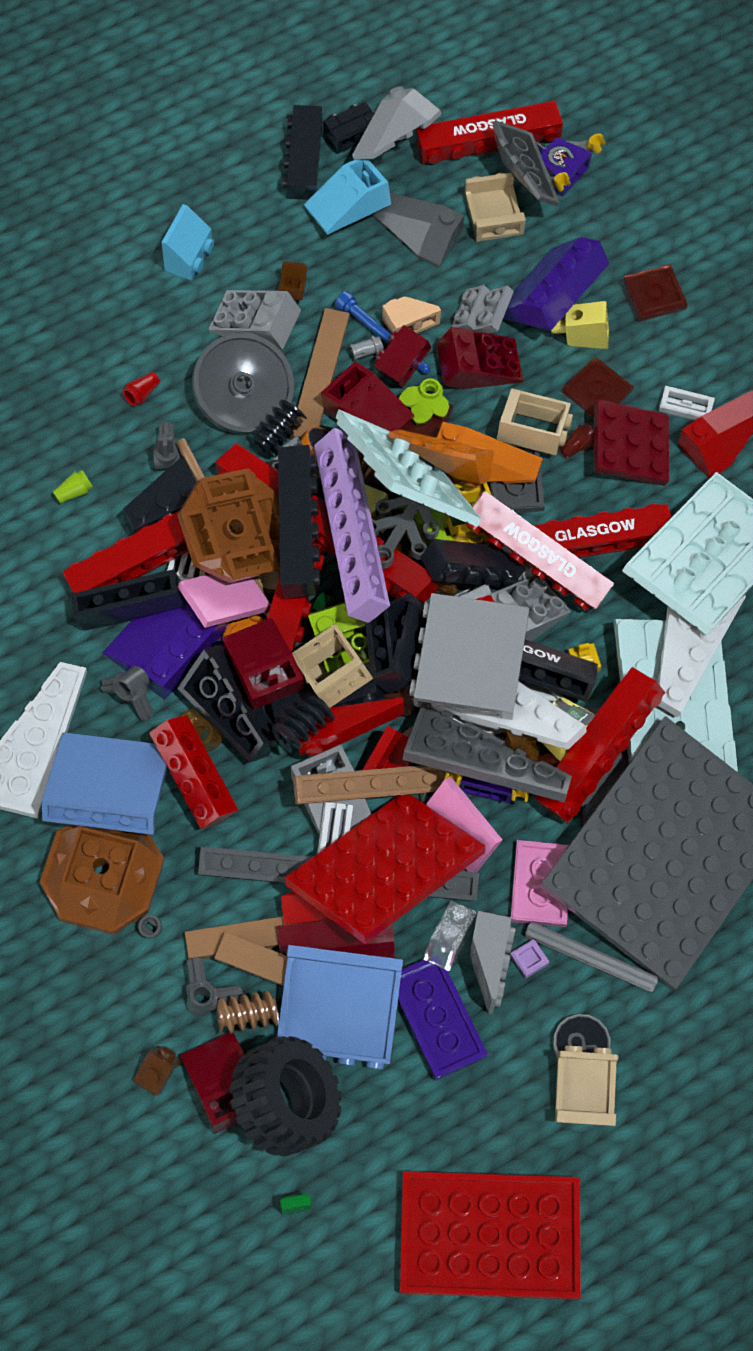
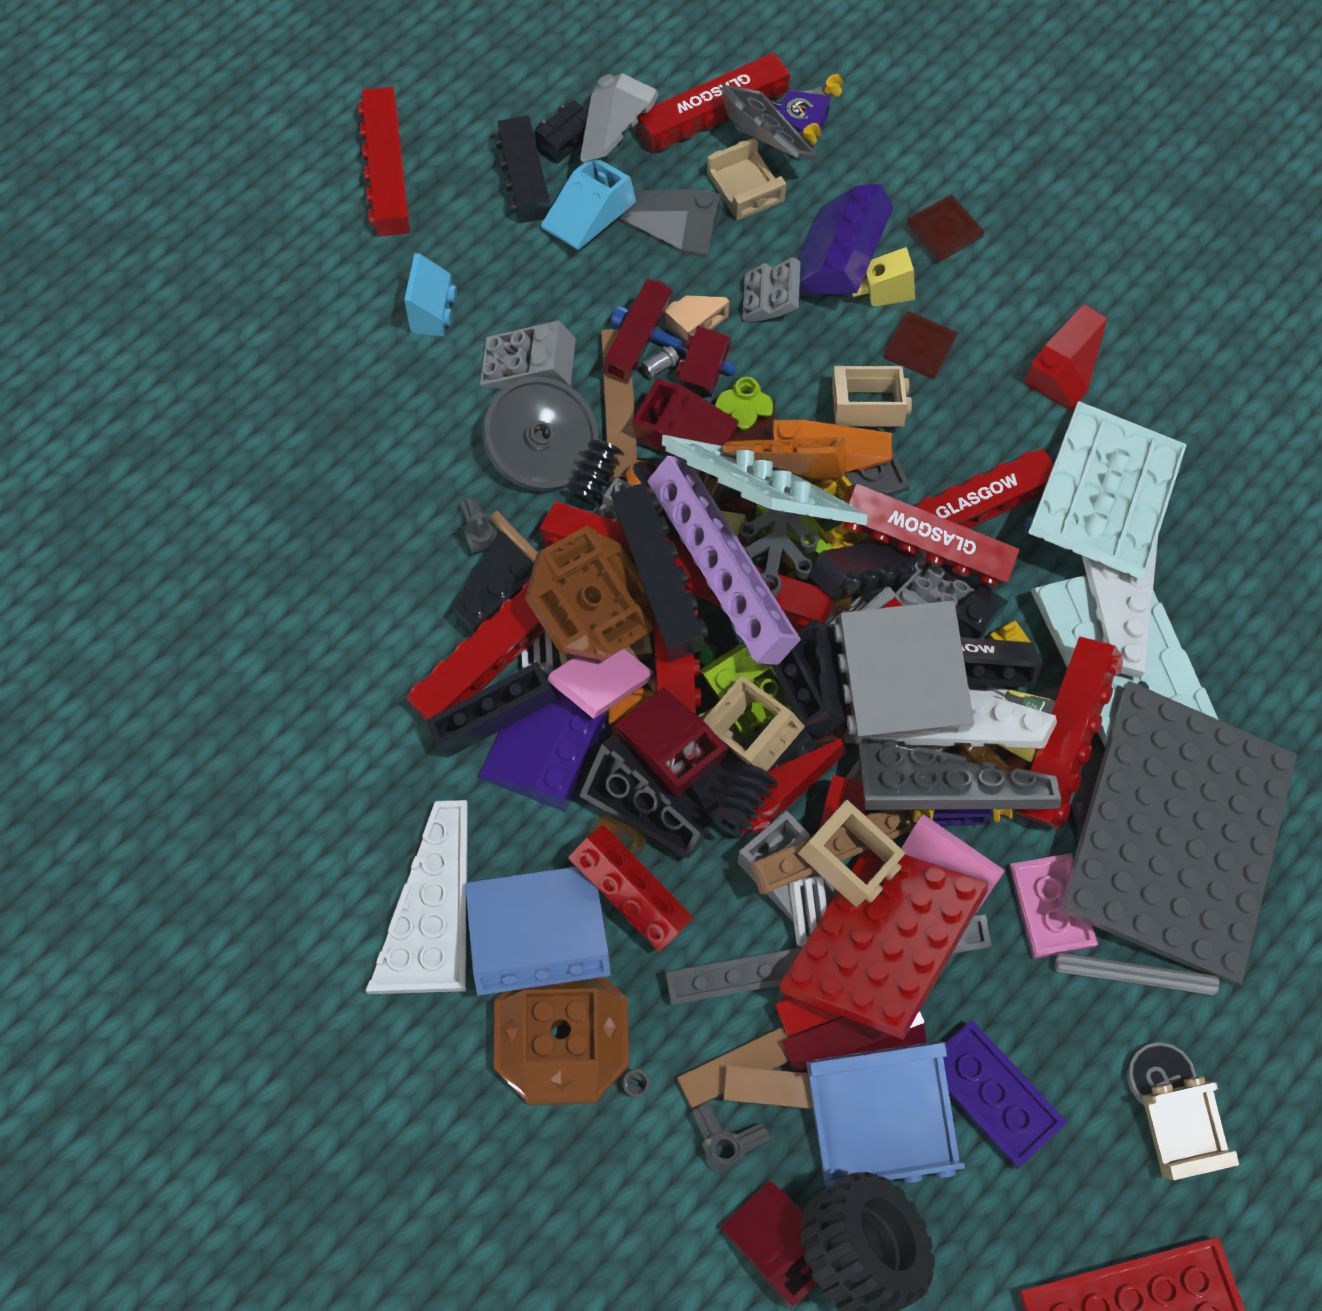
camera: 15 degrees left, 0 degrees up
(74, 486) = (386, 597): lime cone -> none
(131, 687) = (526, 809): dark grey axle -> none
(139, 389) = (426, 469): red cone -> none
(157, 1069) = (700, 1252): reddish brown bracket -> none
(188, 117) = (385, 162): none -> red brick
(247, 1011) = (781, 1151): medium nougat piece -> none
(293, 279) = (557, 306): reddish brown bracket -> none
(353, 316) = (637, 330): none -> dark red brick
(372, 822) = (835, 871): none -> tan window
(450, 935) = (980, 996): clear brick -> none
(478, 359) = (784, 344): dark red slope -> none
(489, 944) = (1031, 1007): light grey slope -> none
(529, 958) = (1070, 996): lavender tile -> none
(564, 628) = (979, 613): none -> black slope
(578, 441) = (923, 403): clear red cone -> none
(631, 442) = (978, 392): dark red plate -> none
(685, 408) = (1020, 341): white tile -> none

